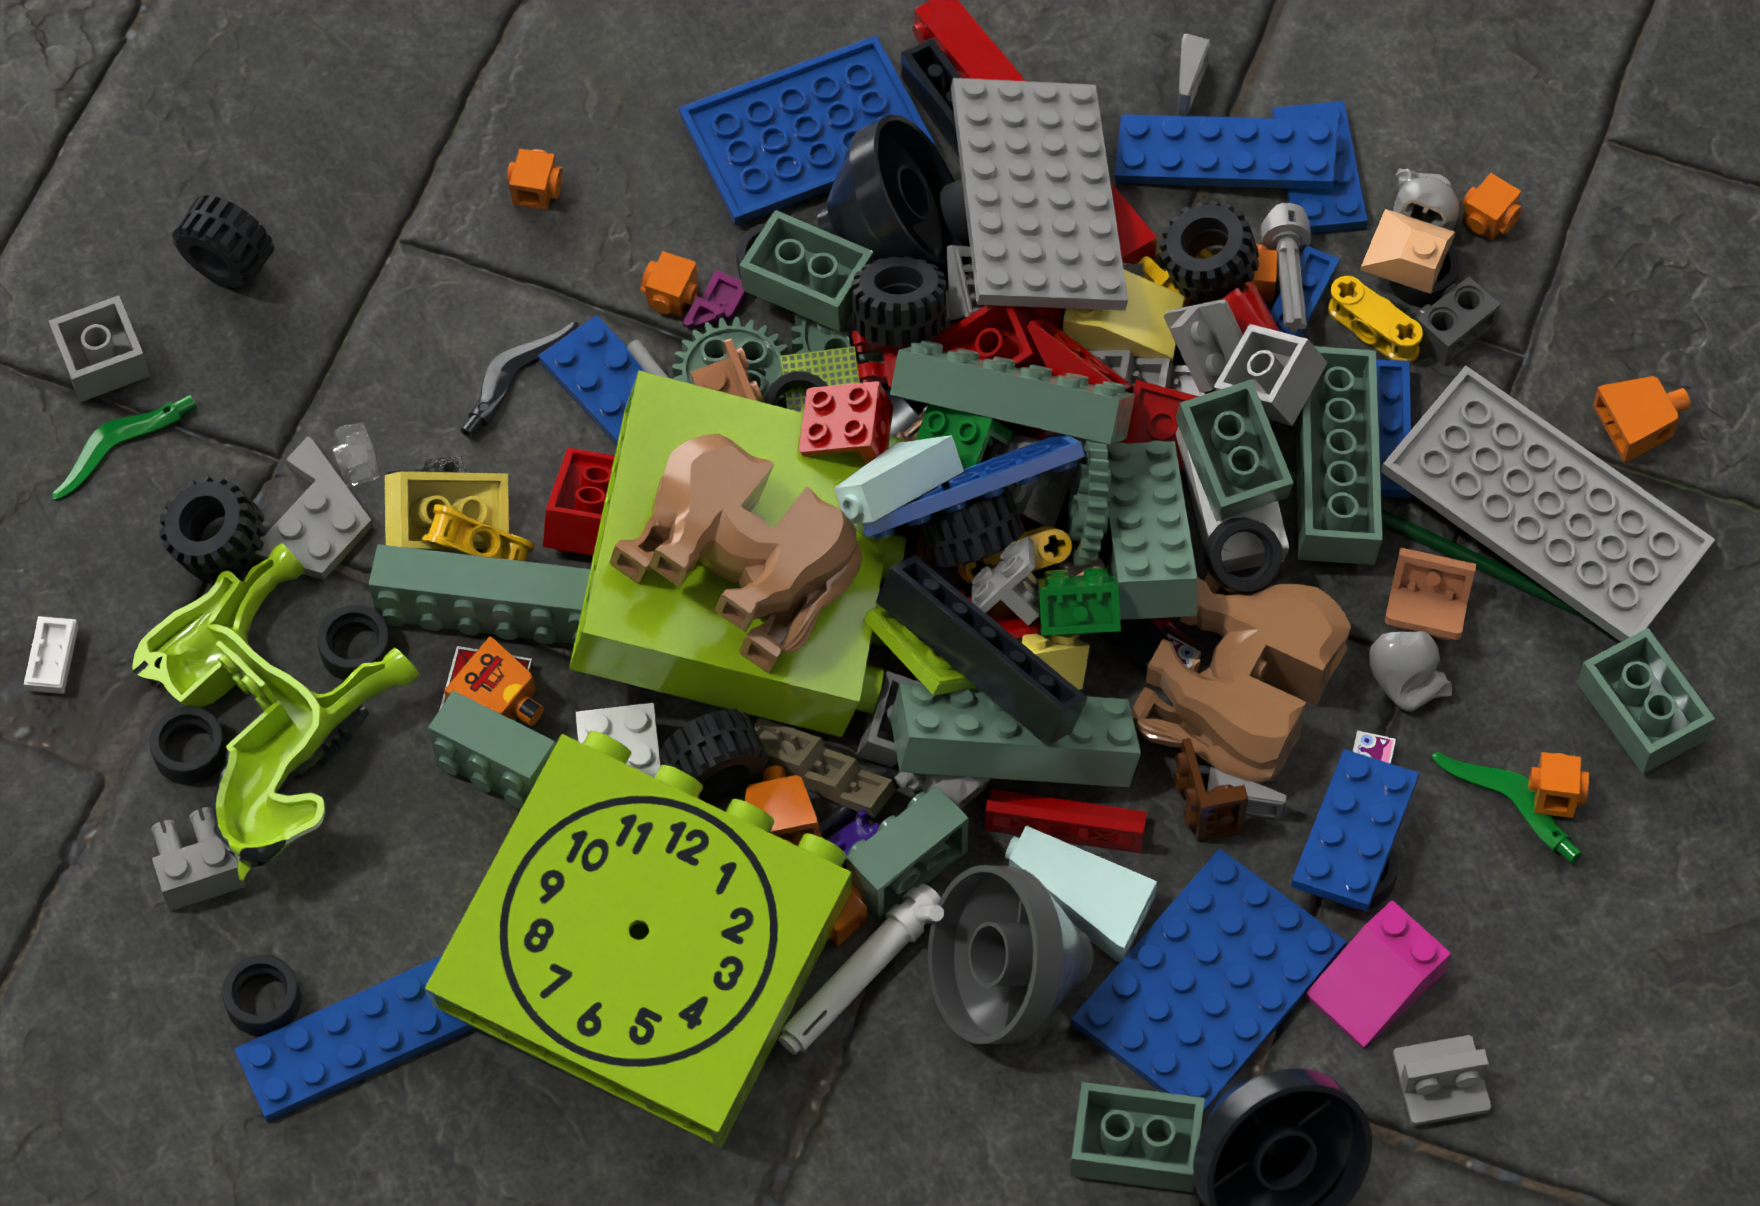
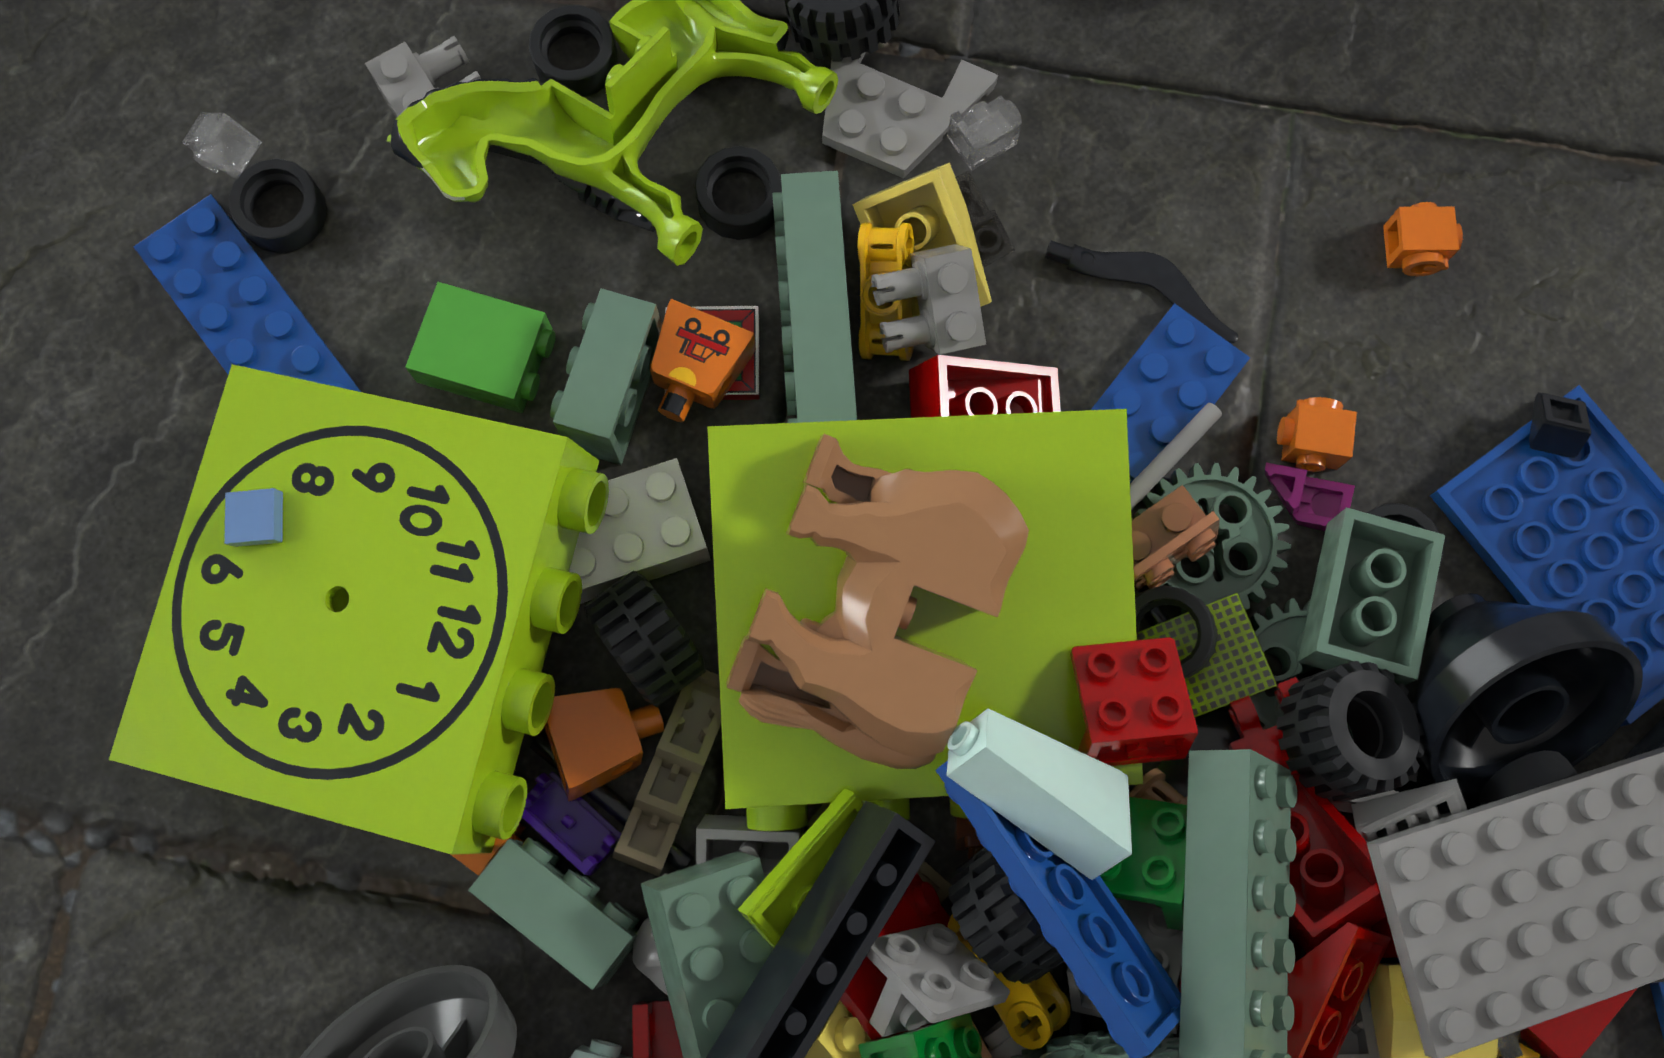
camera: 75 degrees right, 15 degrees up
(195, 1025) = (221, 144): none -> clear brick
(436, 853) = (481, 347): none -> bright green brick
(501, 496) = (946, 300): none -> light grey brick
(558, 980) = (253, 517): none -> medium blue tile
(706, 127) = (1559, 425): none -> black slope
(901, 925) = (473, 924): white cylinder -> none

